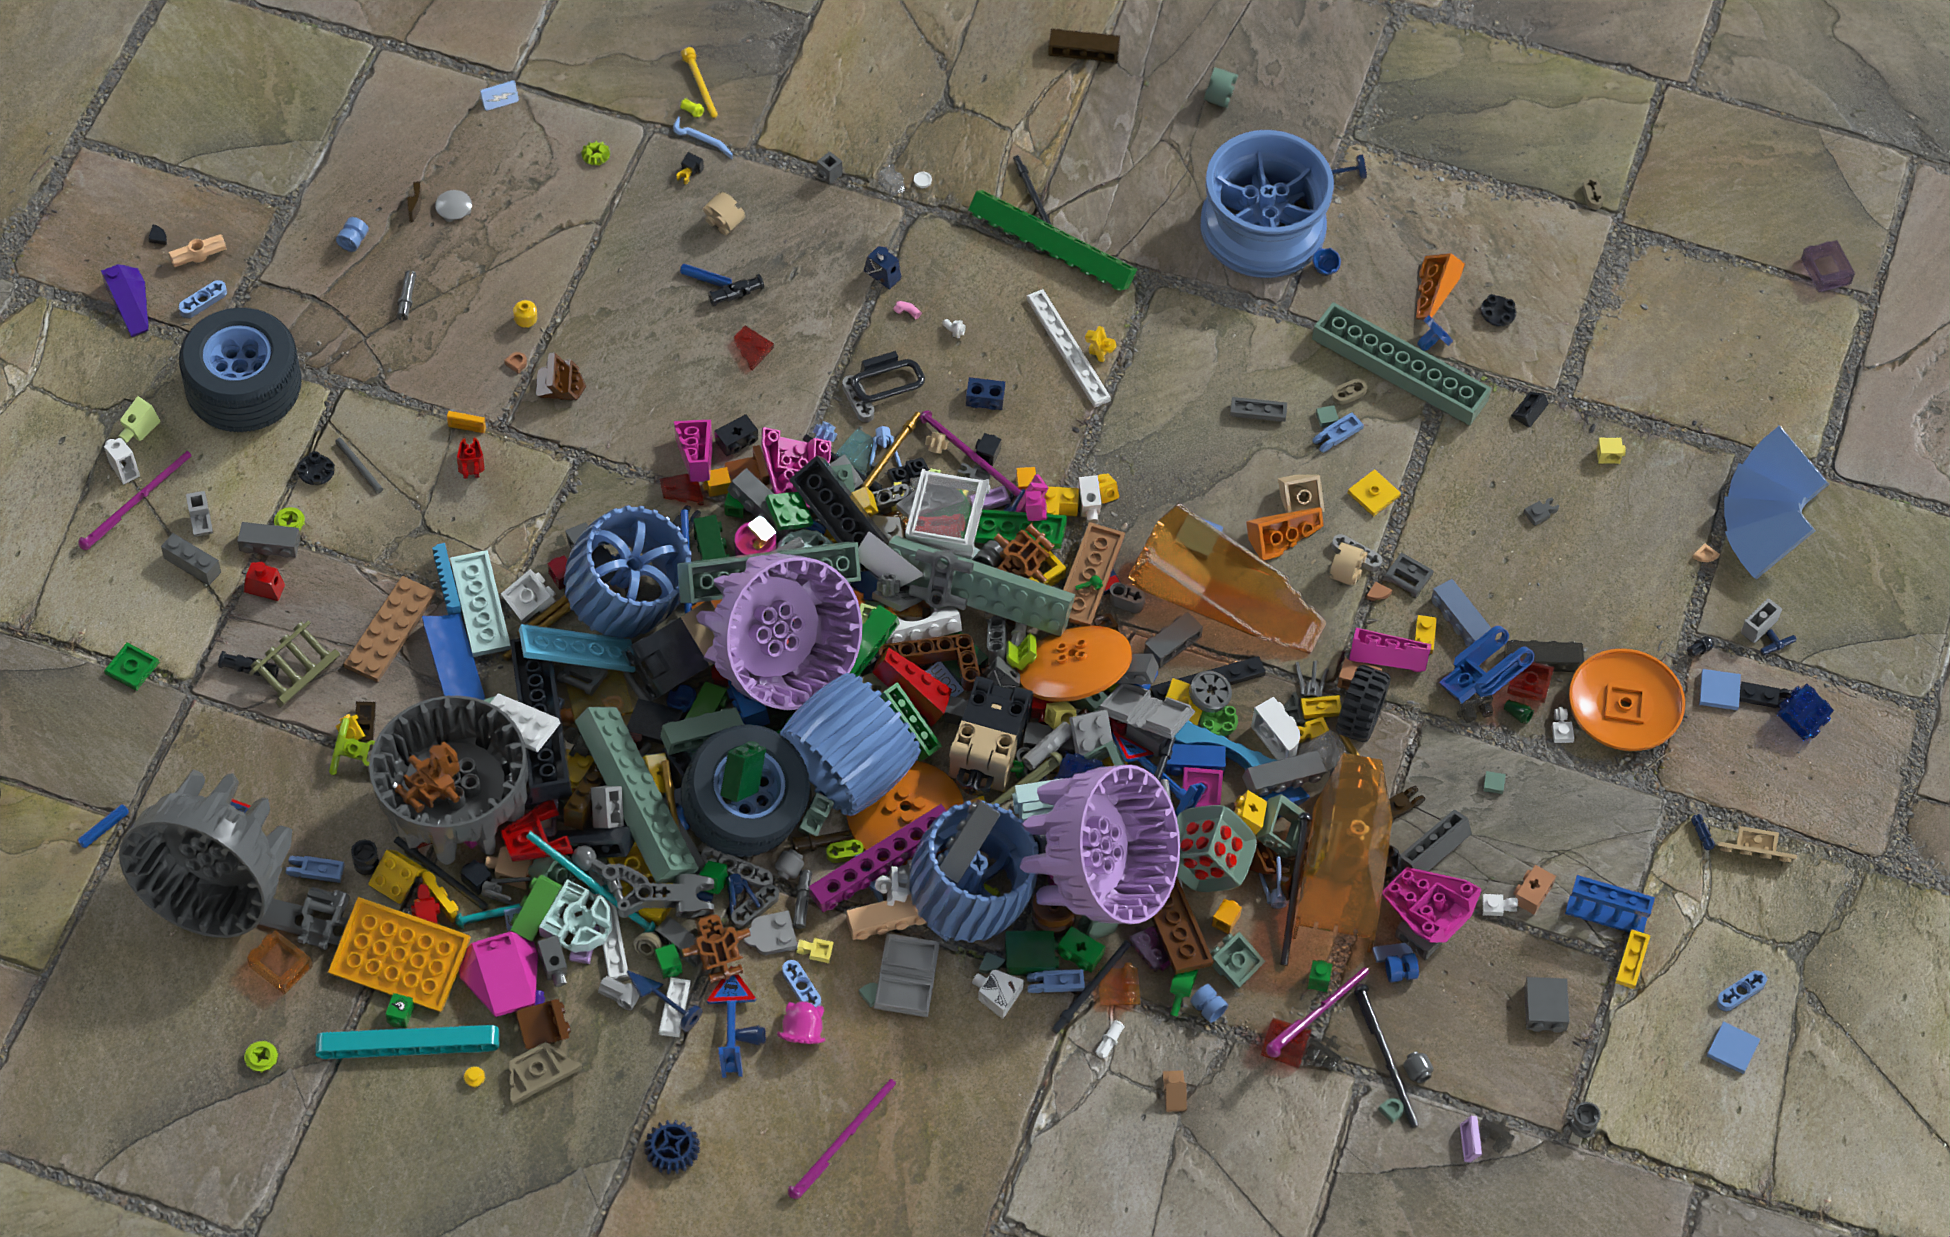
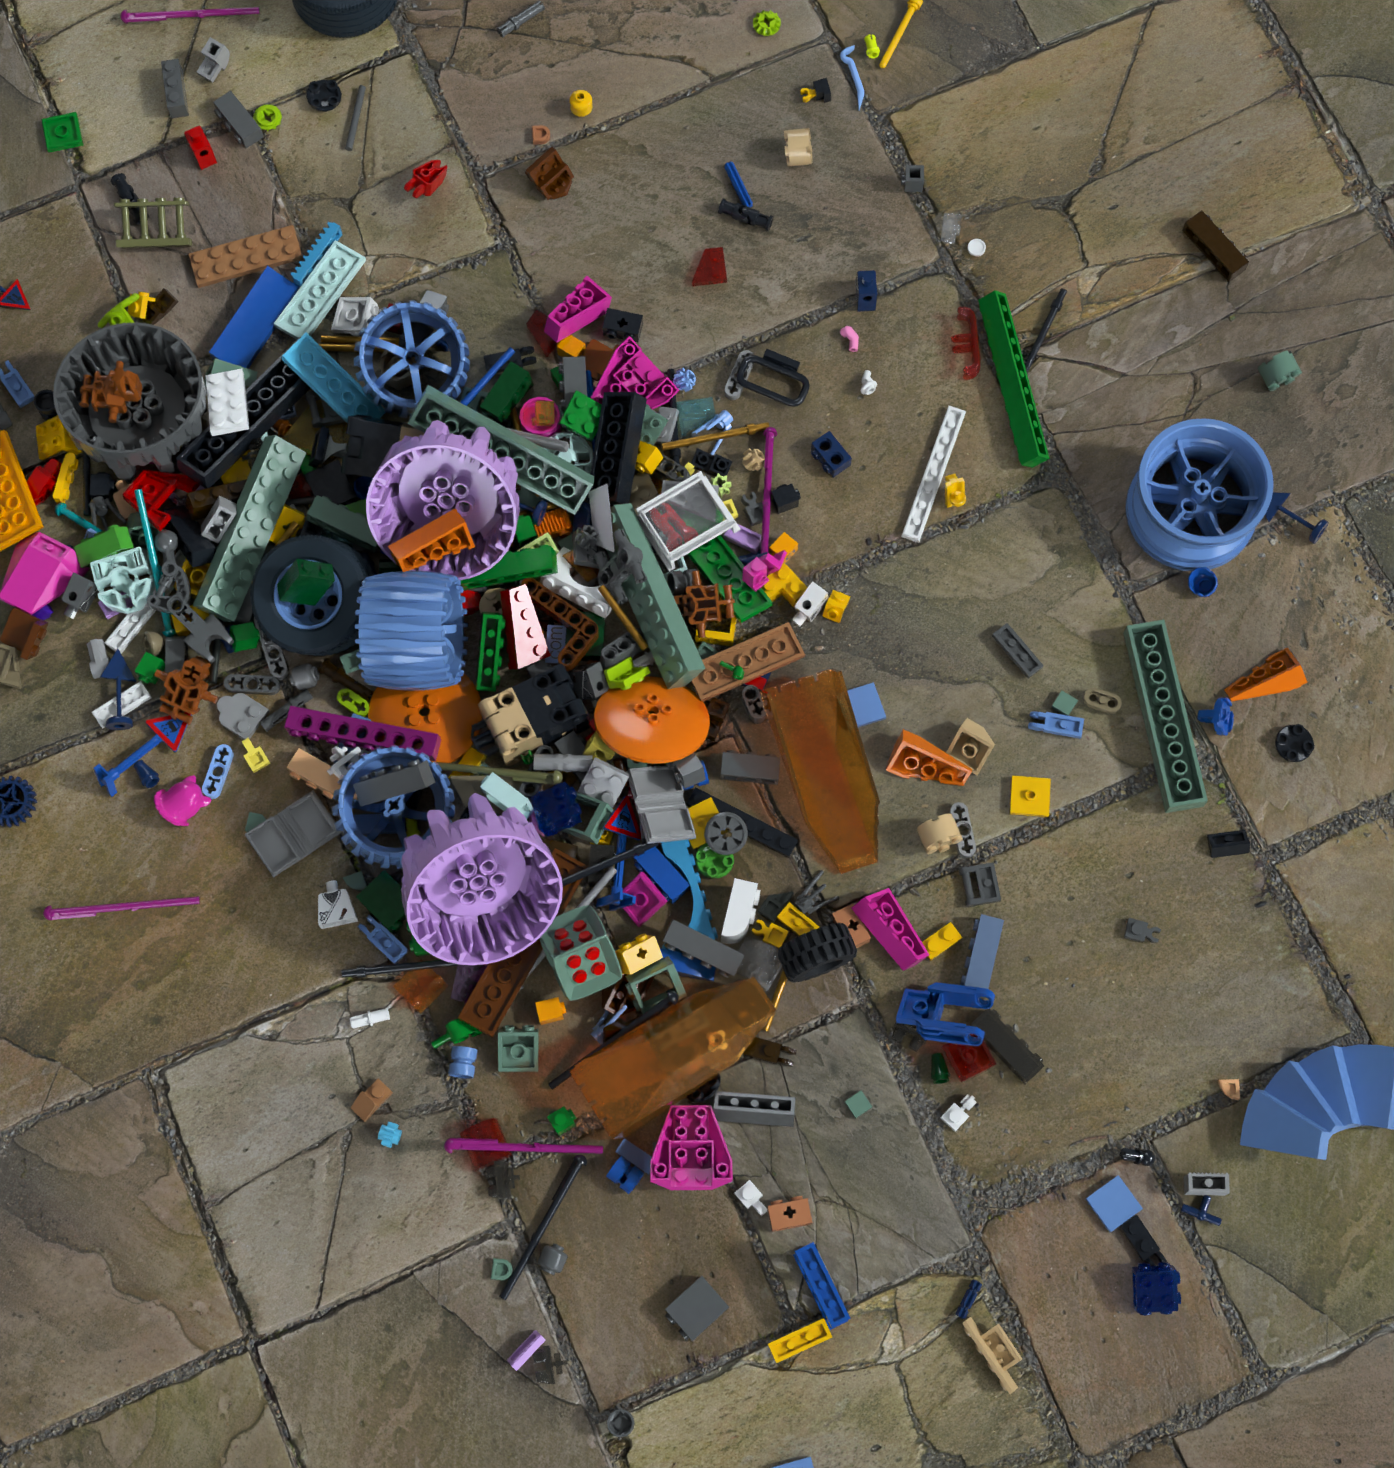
camera: 50 degrees right, 15 degrees up
(466, 422) = (455, 149): light orange tile -> none
(619, 698) = (324, 447): none -> black piece
(735, 886) = (253, 656): dark blue plant -> none
(802, 664) = (432, 542): none -> orange wedge
(977, 614) = (623, 618): none -> pearl gold bar
(993, 237) = (971, 339): none -> clear red piece
(1216, 1096) = (389, 1134): none -> medium azure gear
(1378, 592) = (943, 876): nougat tile -> none
(1610, 450) = (1250, 936): light yellow brick -> none
(1633, 677) = (1055, 1134): orange dish -> none
(1738, 998) = (867, 1456): medium blue beam -> none

